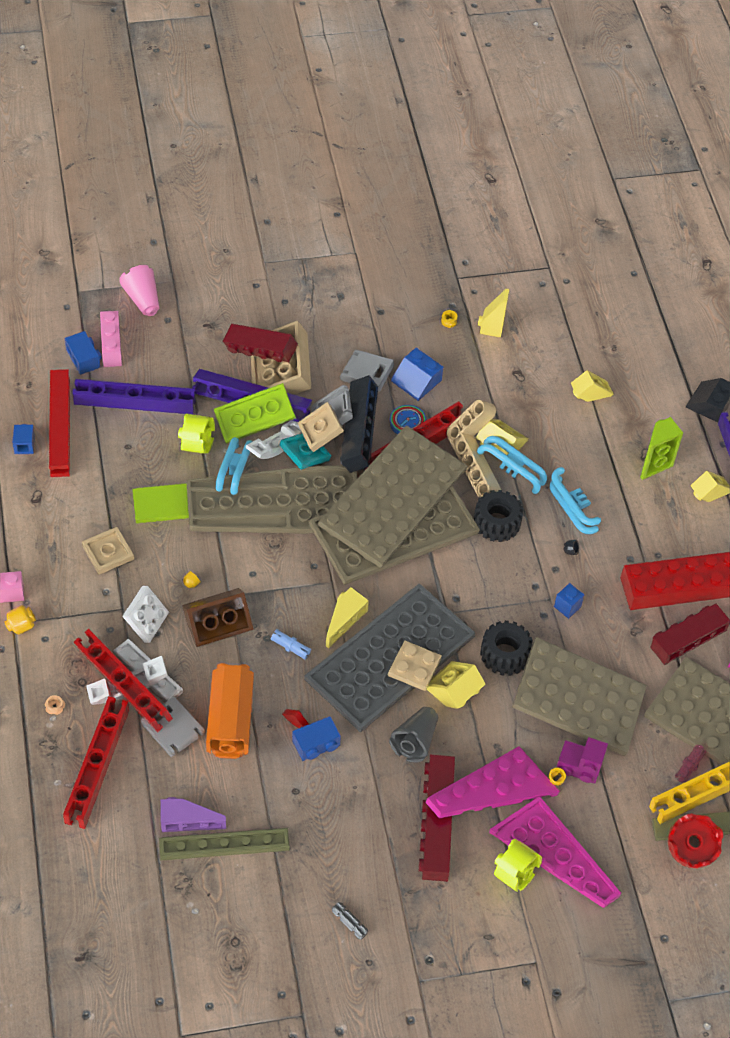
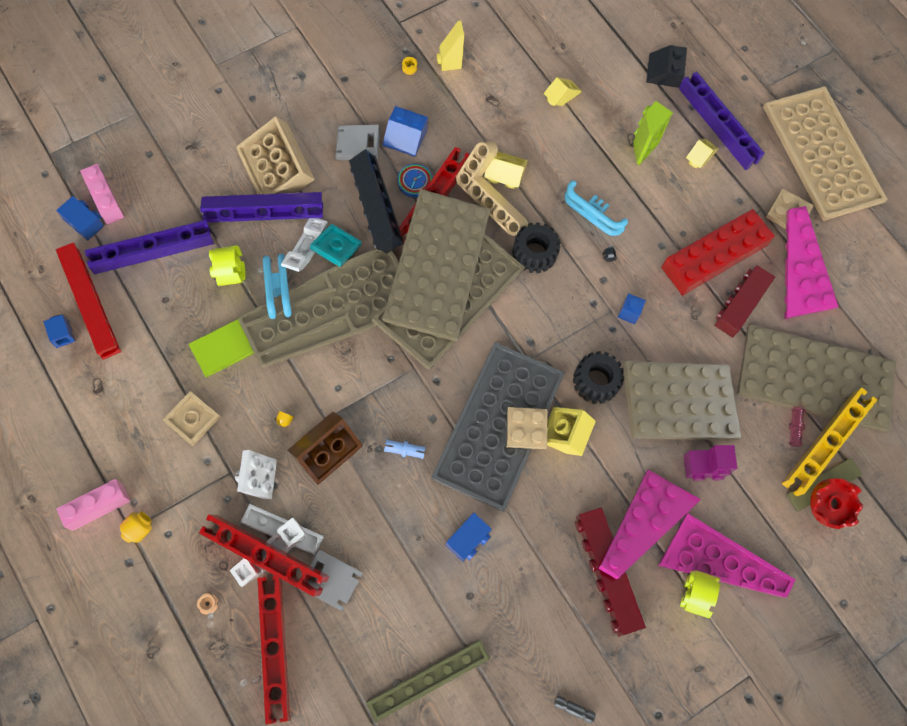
camera: 25 degrees left, 15 degrees up
(141, 288) = (111, 131): bright pink cone -> none
(187, 816) = (380, 669): medium lavender slope -> none
(230, 711) = (380, 546): orange brick -> none
(254, 413) = (273, 225): lime tile -> none
(260, 343) = (249, 150): dark red brick -> none
(295, 717) = (440, 523): red tile -> none
(320, 426) = (342, 218): tan plate -> none
(340, 402) = (348, 194): light grey container -> none
(348, 611) = (442, 393): light yellow slope -> none
(415, 735) = (557, 497): dark grey cone -> none
(514, 461) = (528, 189): medium azure piece -> none
(554, 773) = (697, 489): yellow hinge -> none

